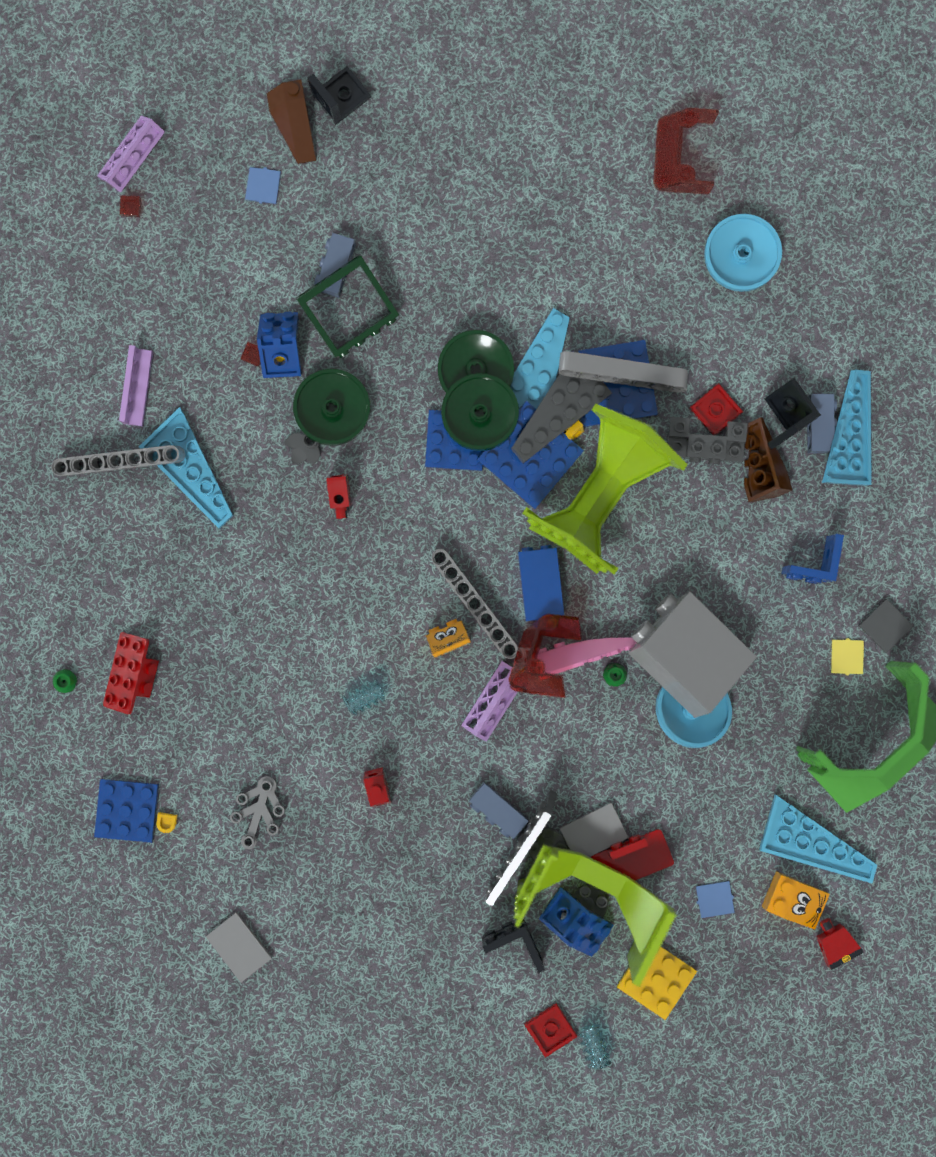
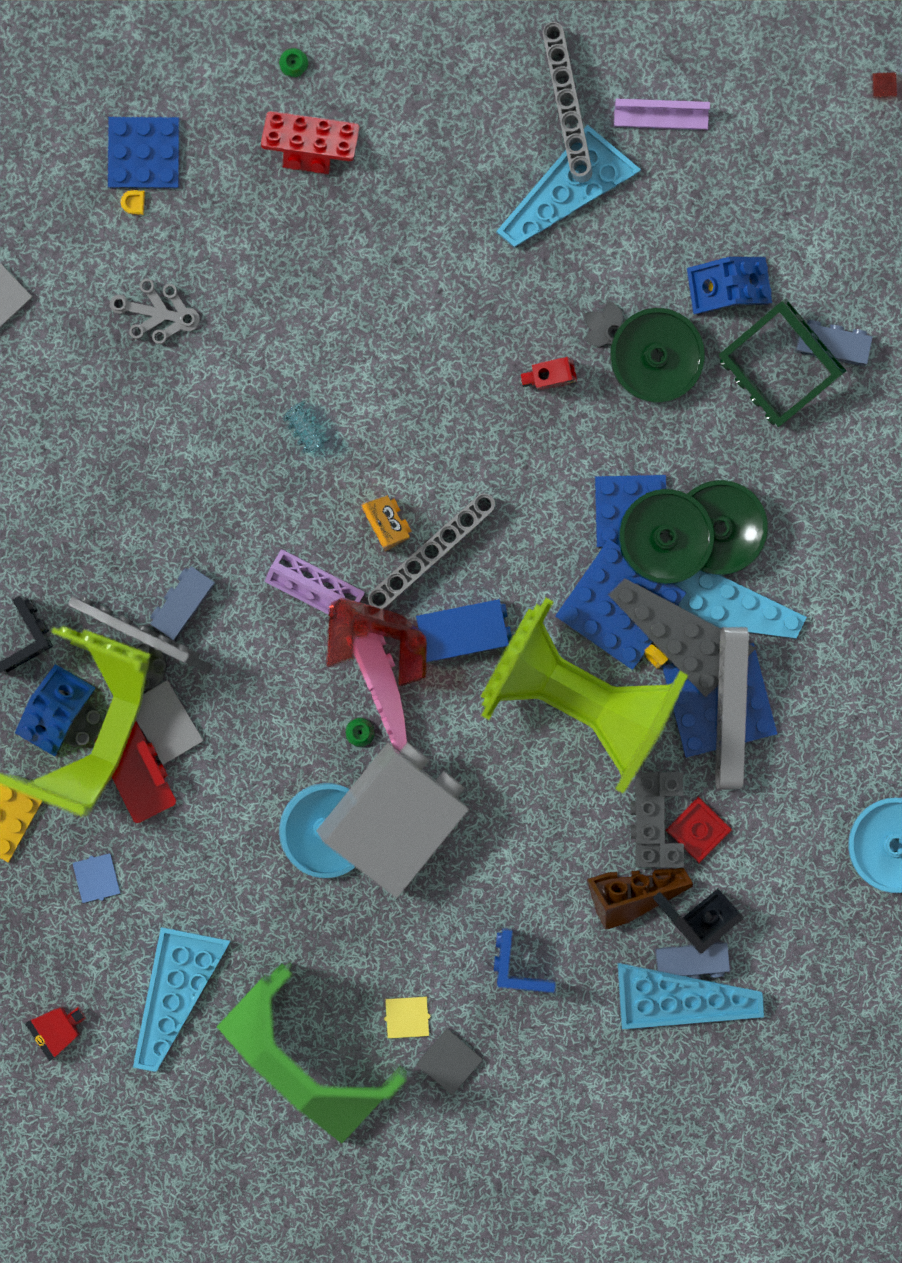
camera: 90 degrees right, 0 degrees up
(251, 354) = (713, 251): clear red plate -> none
(376, 787) = (197, 453): red torso -> none
(795, 900) = (103, 976): light orange slope -> none

